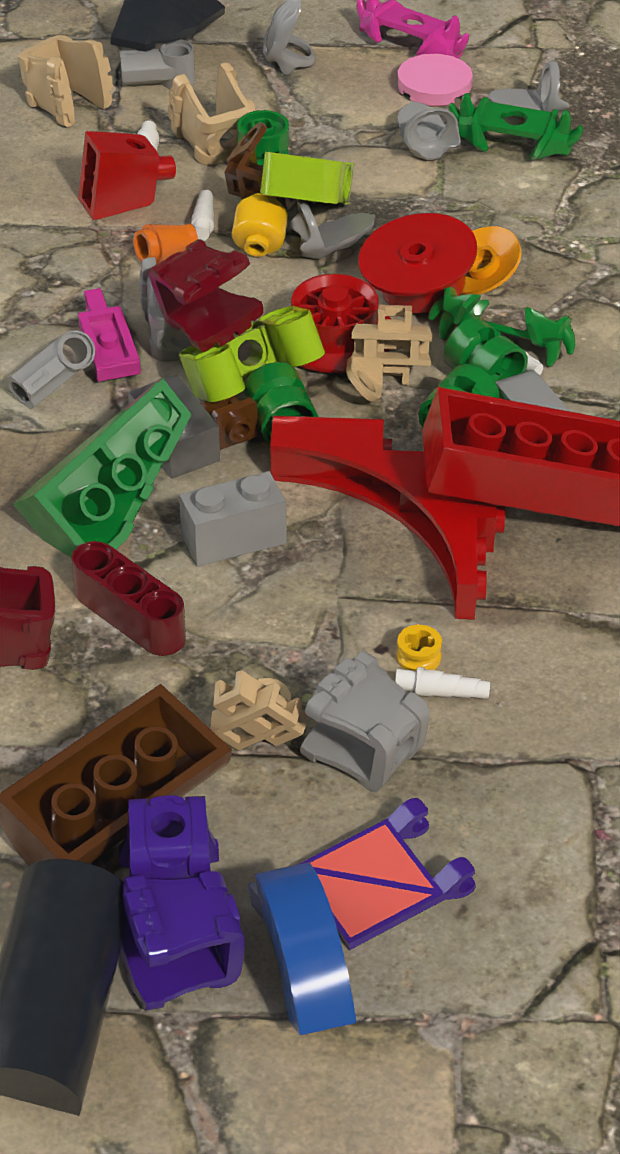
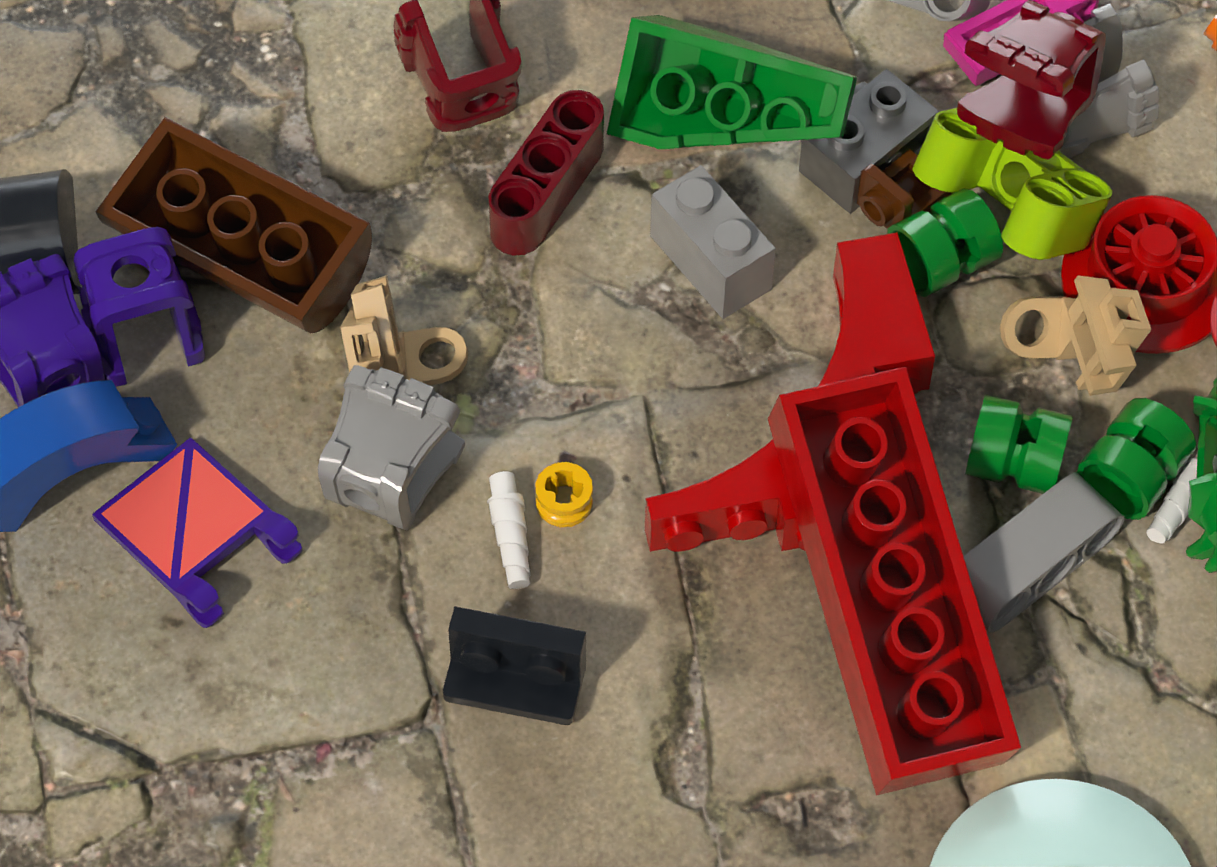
camera: 75 degrees right, 15 degrees up
(571, 692) = (514, 666): none -> black bracket

